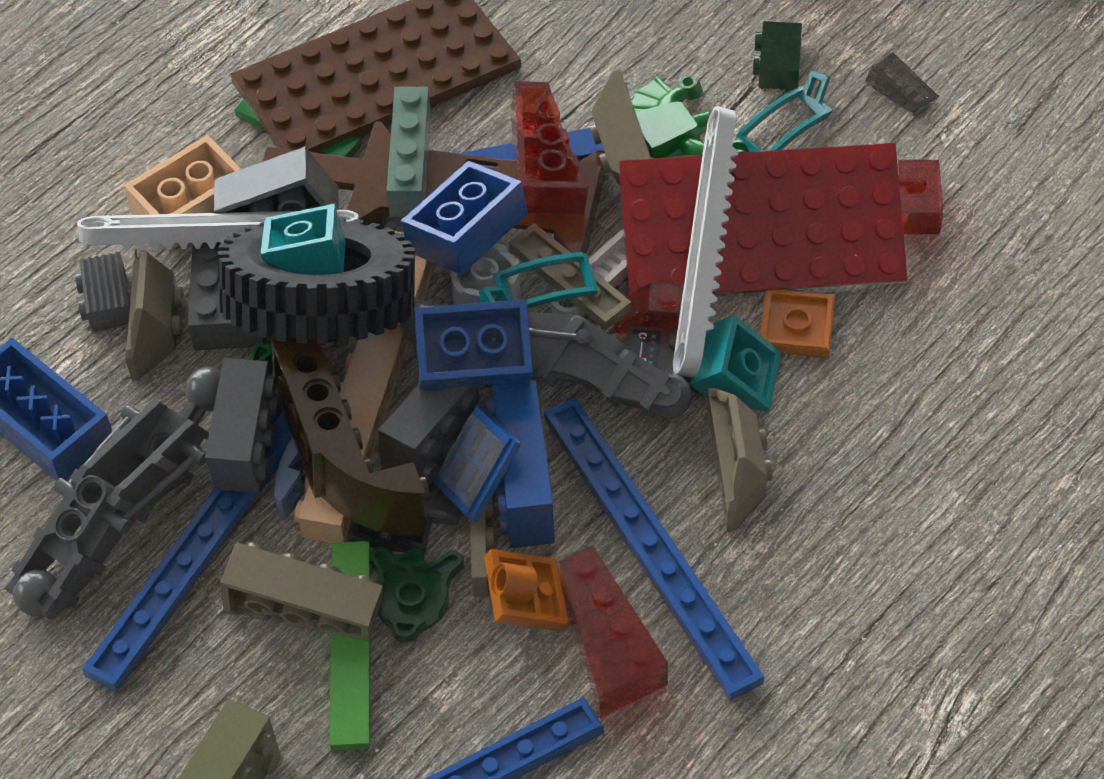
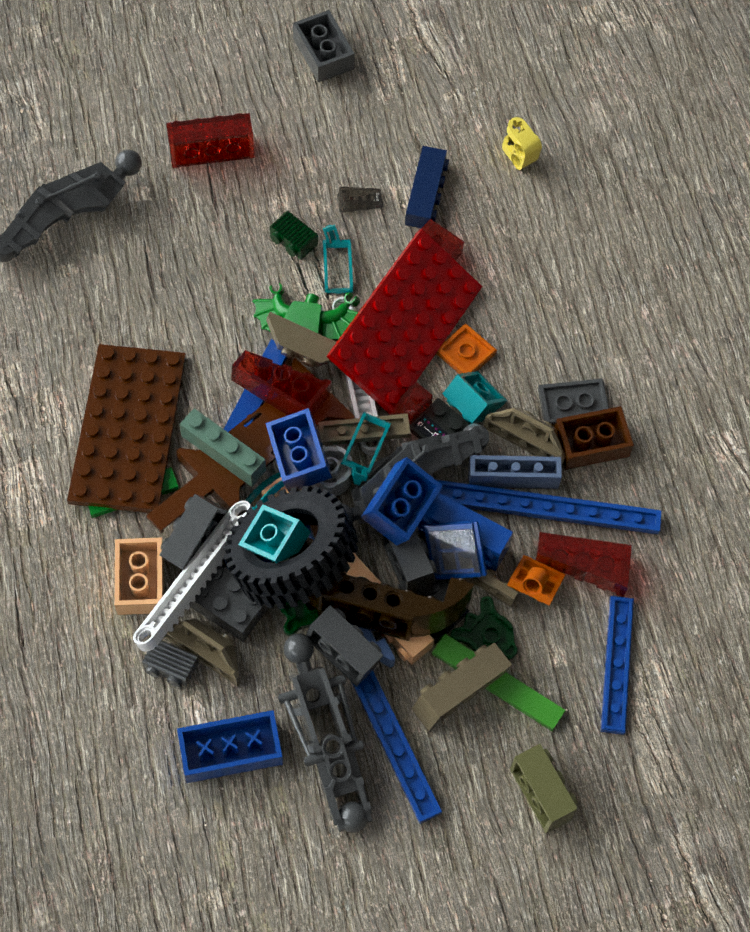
camera: 60 degrees left, 10 degrees up
(662, 471) = (515, 471): none -> sand blue brick
(706, 242) = (411, 353): white gear -> none
(796, 527) = (594, 437): none -> reddish brown brick
(838, 483) = (571, 398): none -> dark grey tile
(989, 133) = (426, 187): none -> dark blue brick

